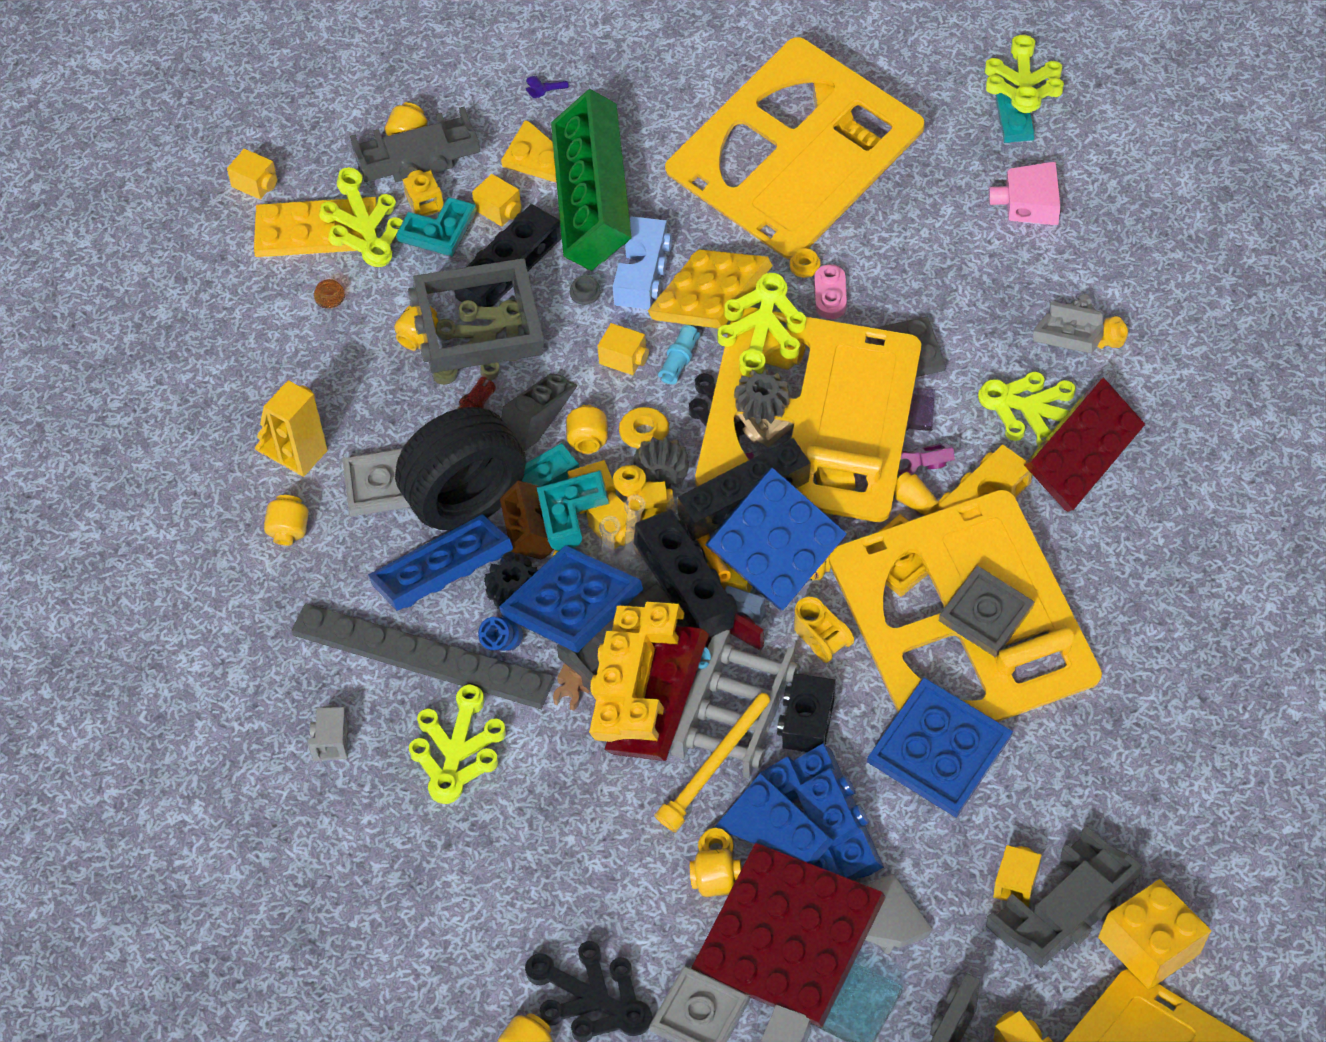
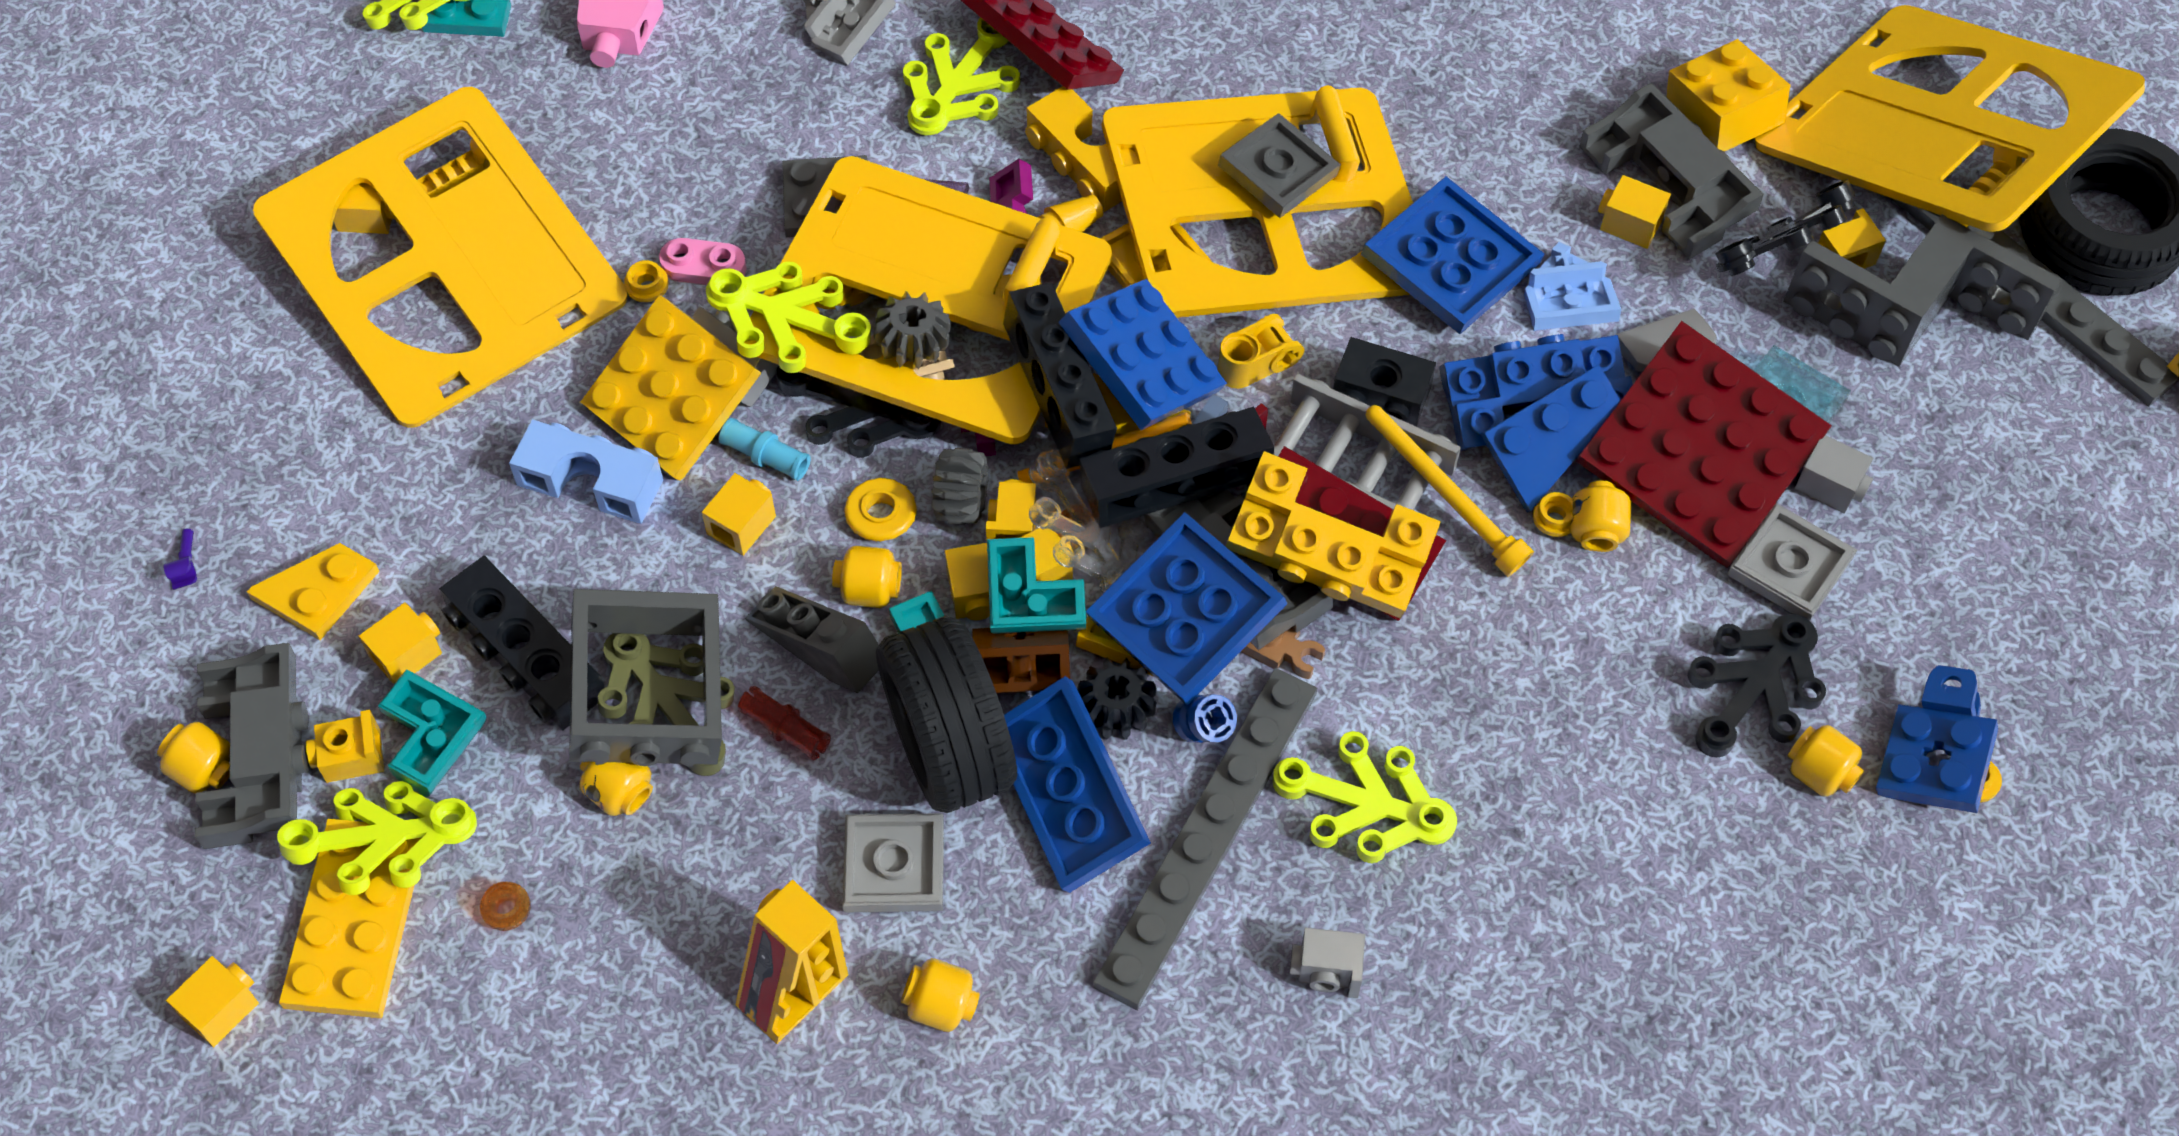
camera: 85 degrees left, 5 degrees up
(585, 290) = (609, 552): dark grey plate -> none
(590, 180) = (422, 501): green brick -> none
(632, 486) = (996, 527): yellow plate -> none
(930, 839) = (1570, 292): none -> light blue slope
(1011, 985) = (1830, 213): none -> black plant

